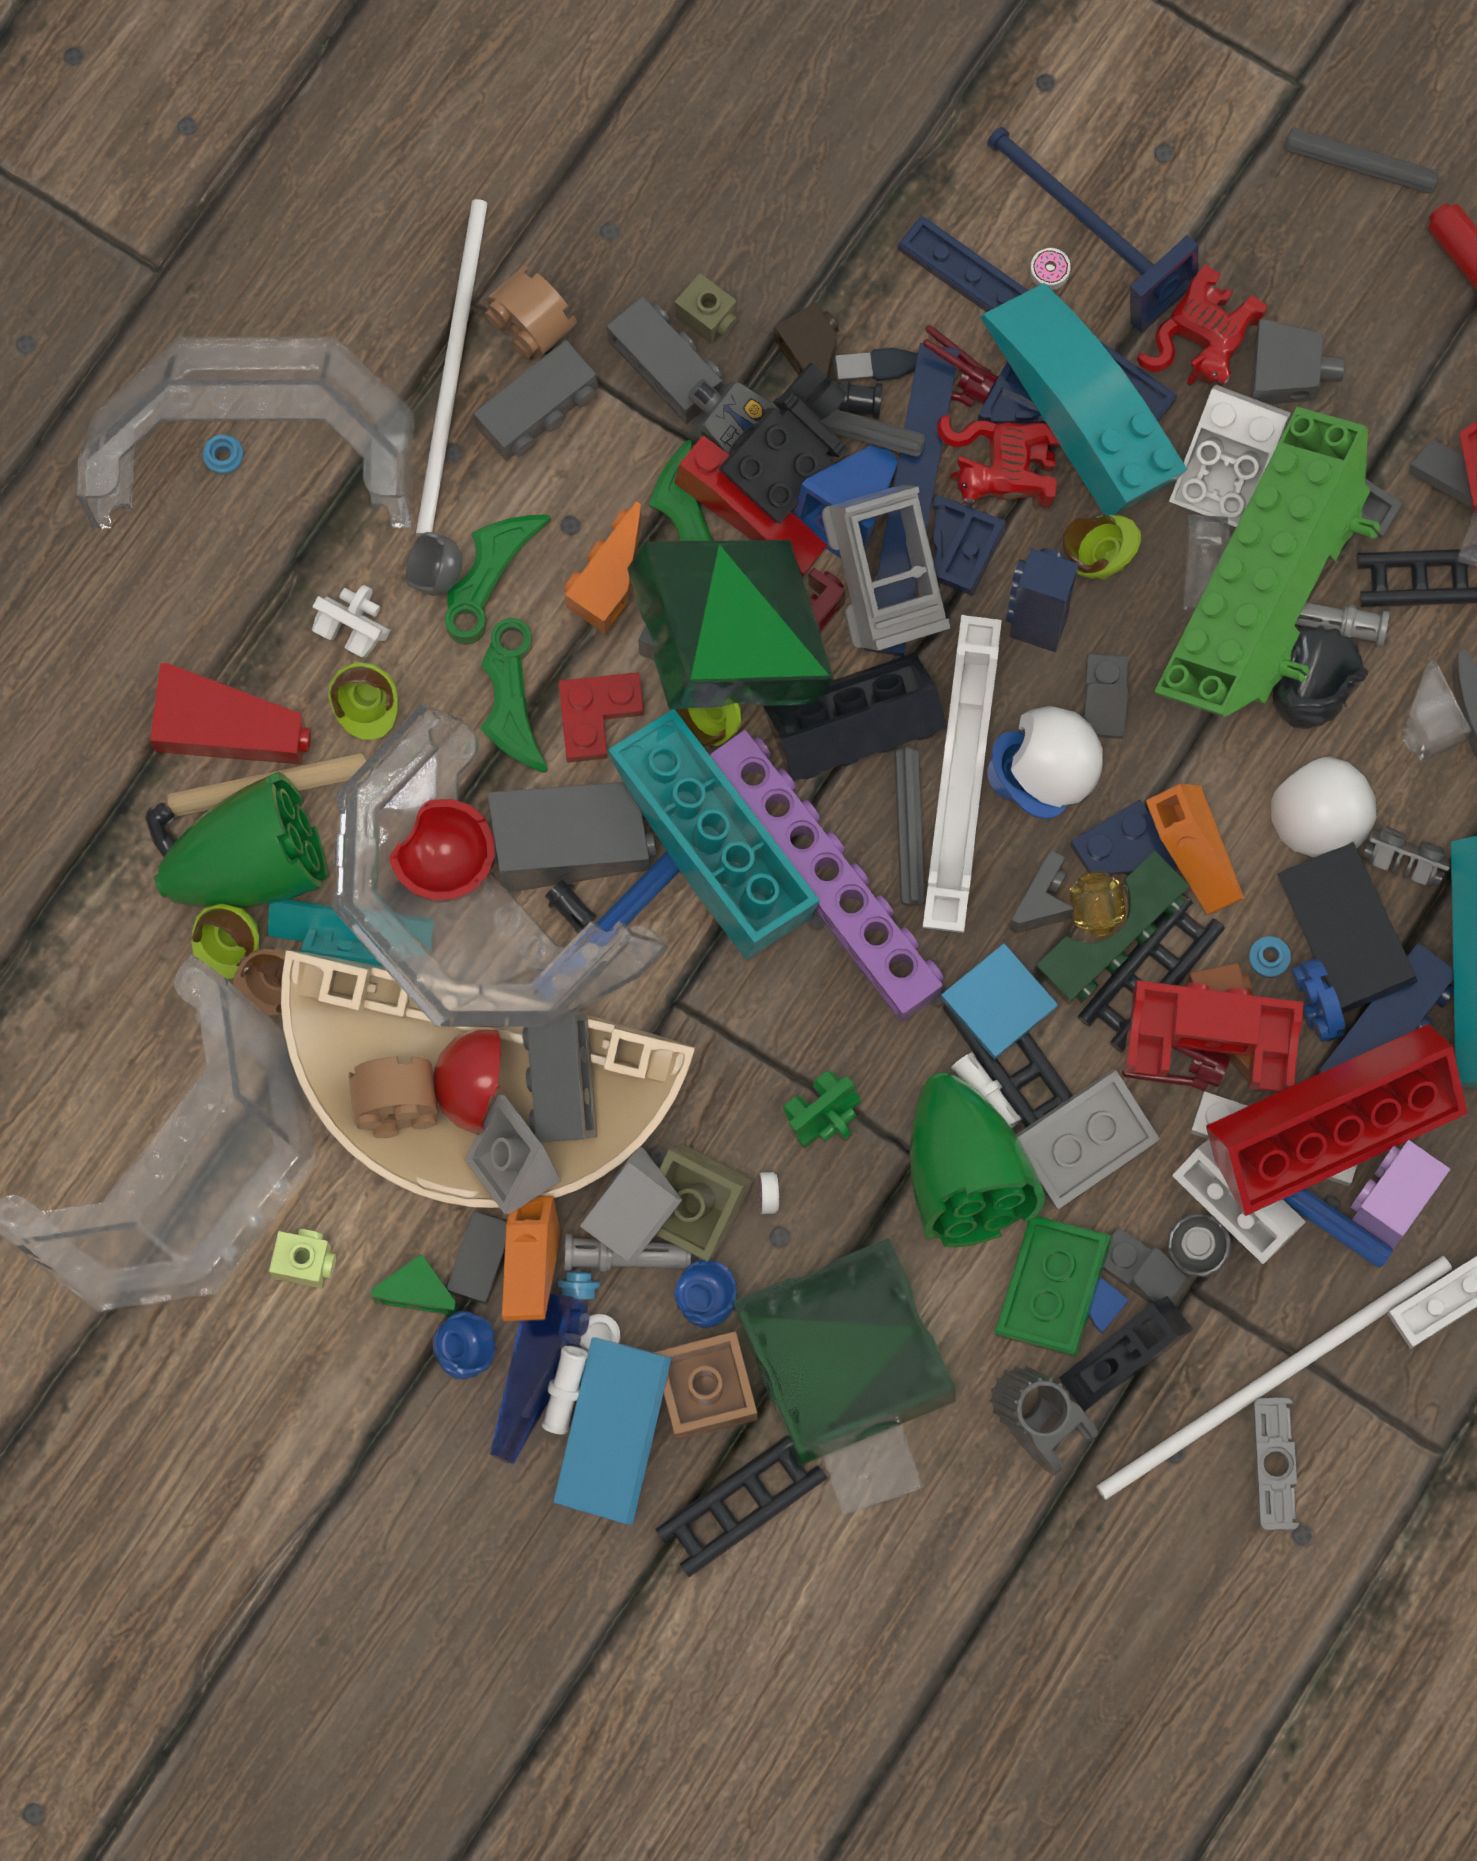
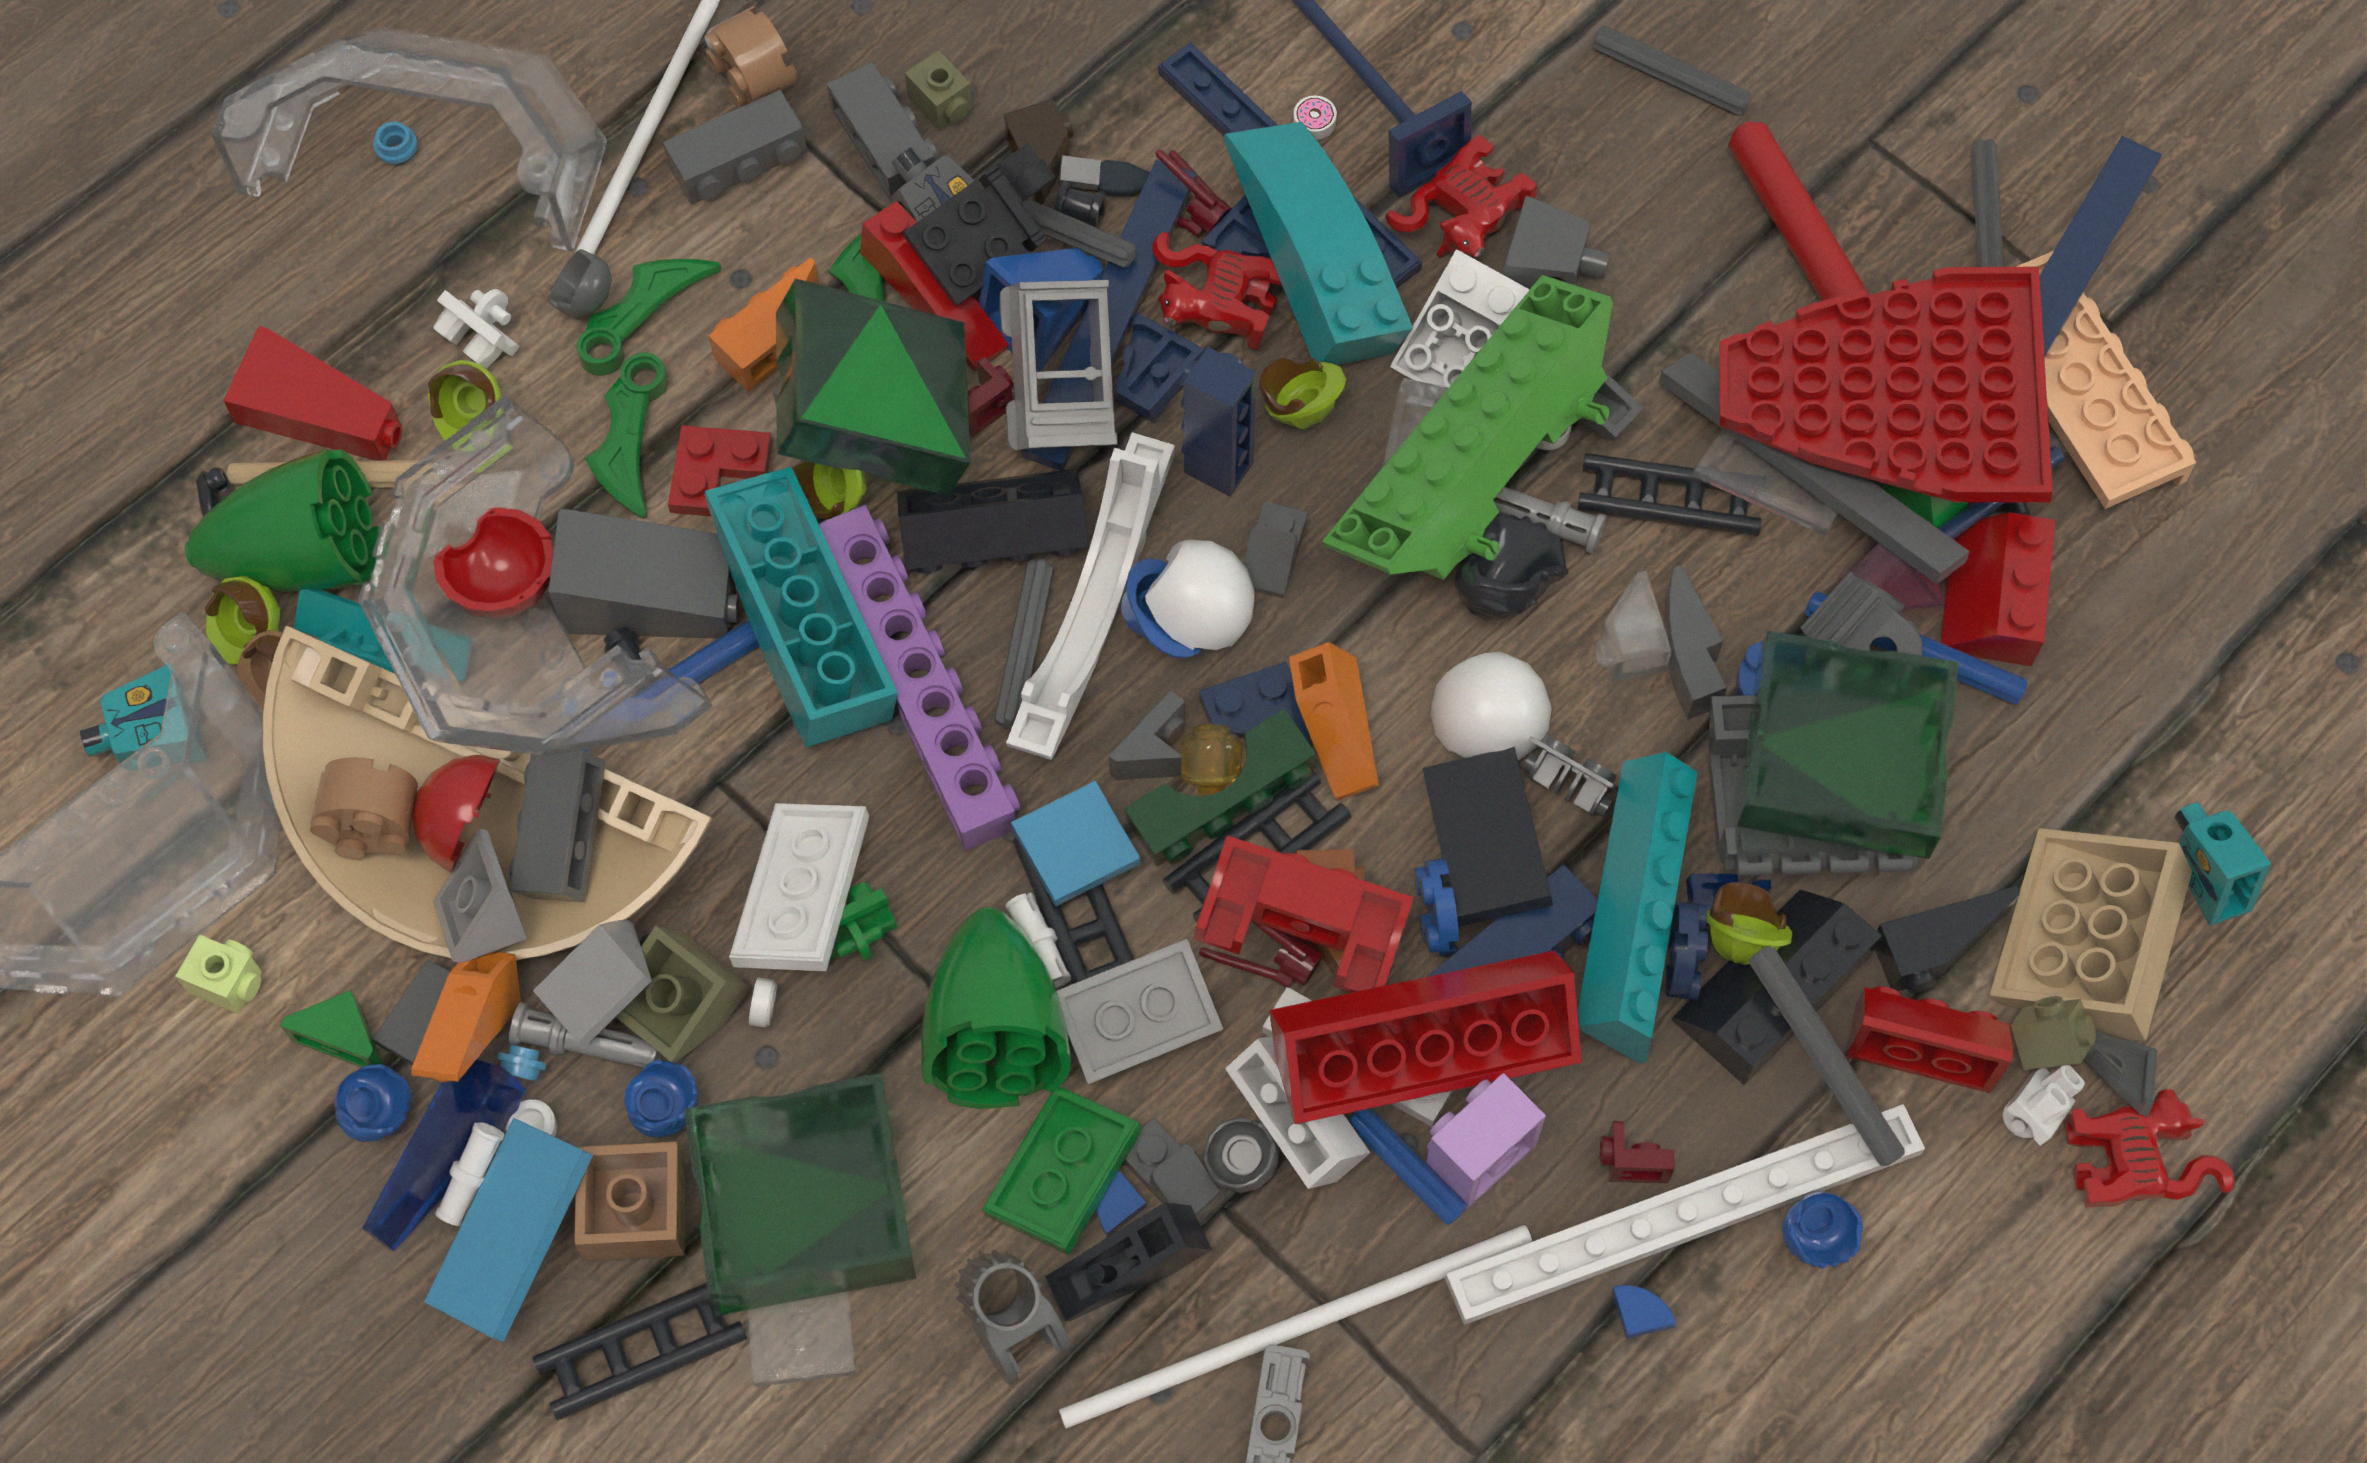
camera: 10 degrees right, 10 degrees down
(166, 1050) = (131, 716): none -> teal torso
(776, 1087) = (799, 887): none -> white tile
(1265, 968) = (1394, 868): dark azure plate -> none

